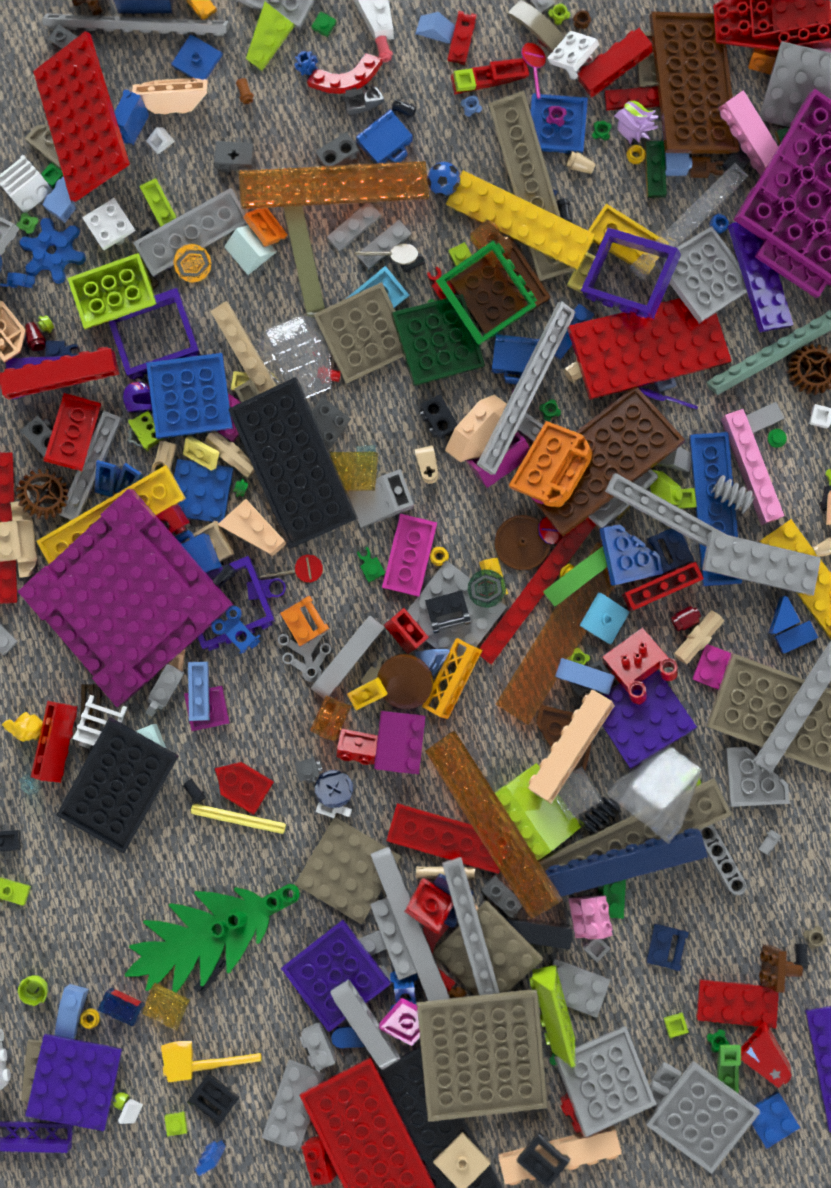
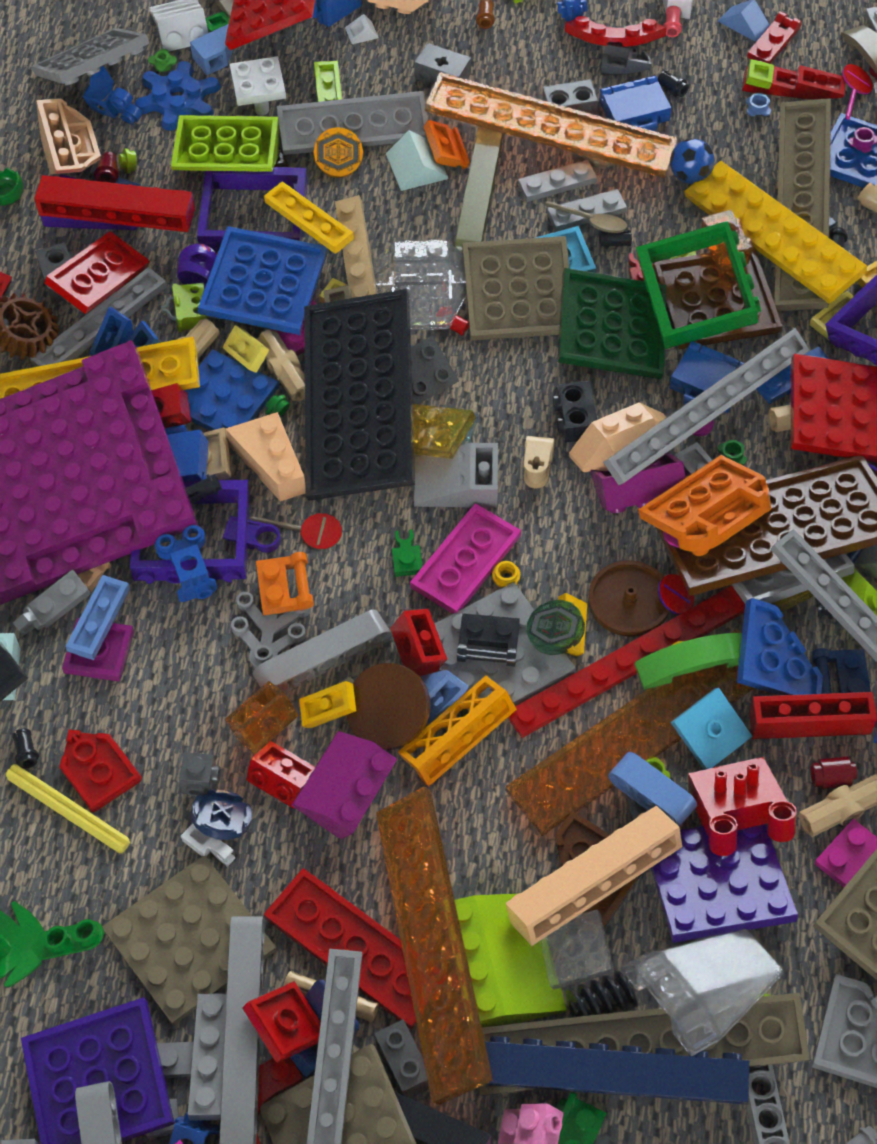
camera: 15 degrees right, 25 degrees down
(199, 334) = (309, 217): none -> yellow plate

